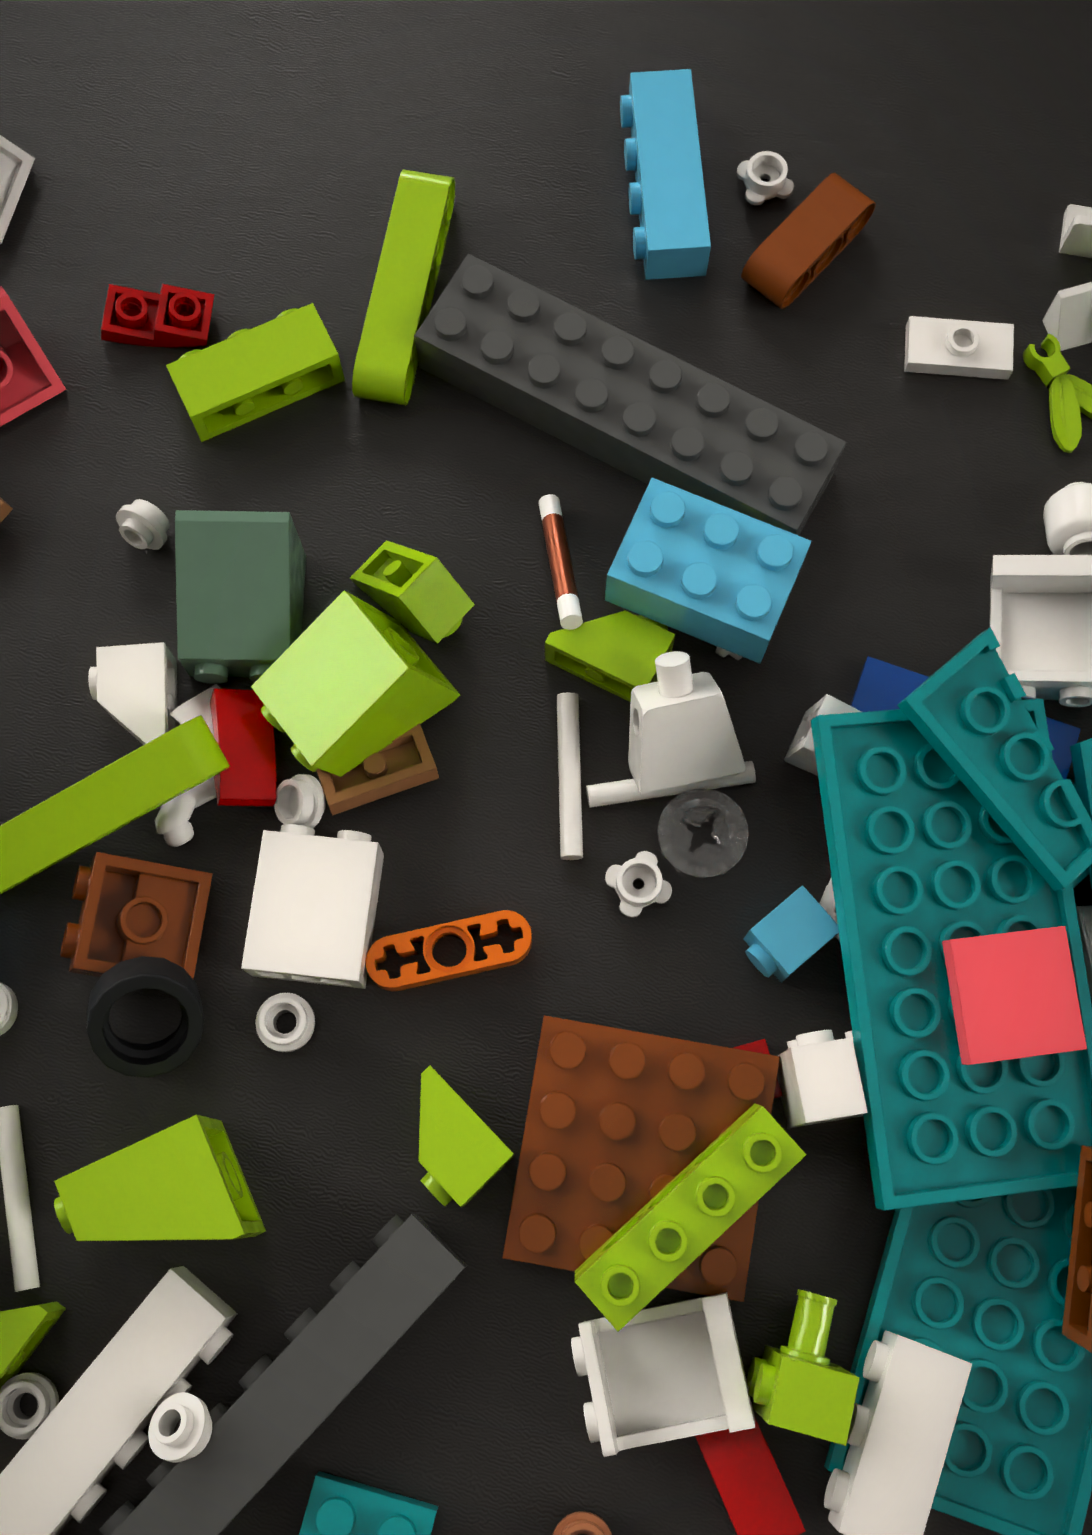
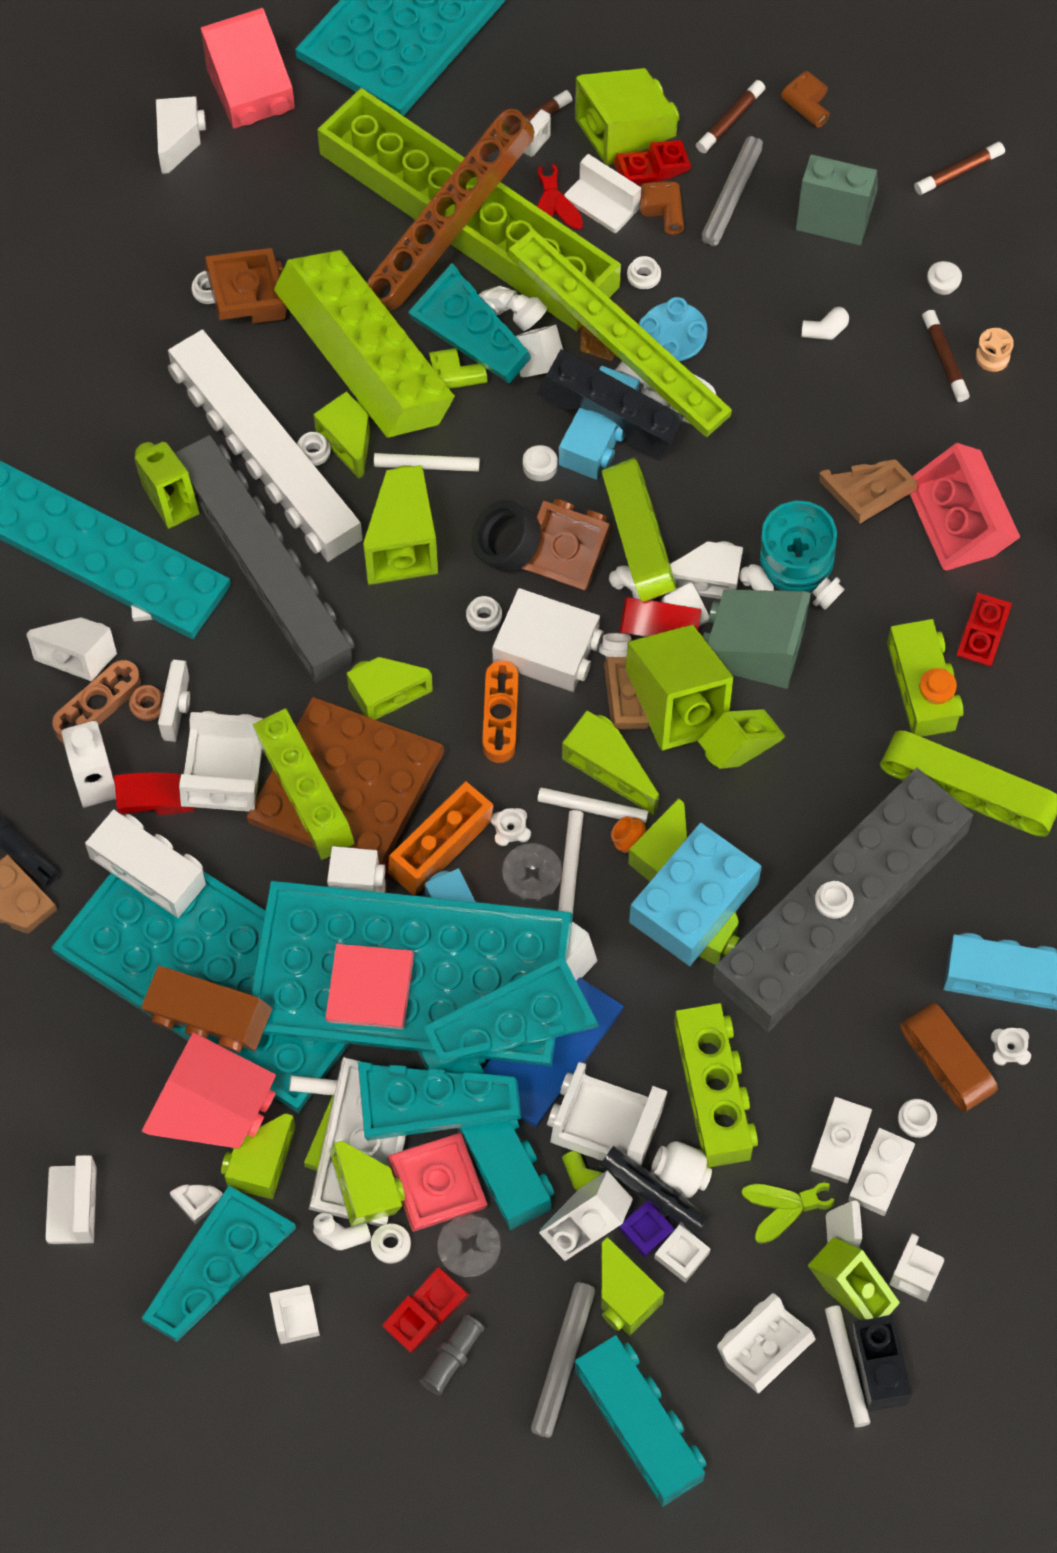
camera: 105 degrees right, 10 degrees down
(63, 545) = (803, 530): none -> teal wheel
(146, 622) = (755, 577): none -> white arm
(192, 1433) = (275, 511): white plate -> none
(280, 330) = (937, 686): none -> orange plate
(491, 767) = (604, 755): none -> lime slope
(560, 562) = (736, 826): copper bar -> none
(571, 1497) = (175, 700): none -> white plate
(605, 709) = (627, 833): none -> orange plate
(661, 385) = (834, 899): none -> white plate
(680, 728) = (598, 866): white torso -> none
(706, 972) = (440, 838): none -> orange brick
(798, 1384) = (192, 825): lime brick -> none
(879, 553) = (719, 1143): none -> lime brick
(899, 264) = (917, 1118): none -> white plate
(983, 293) = (881, 1171): none -> white plate

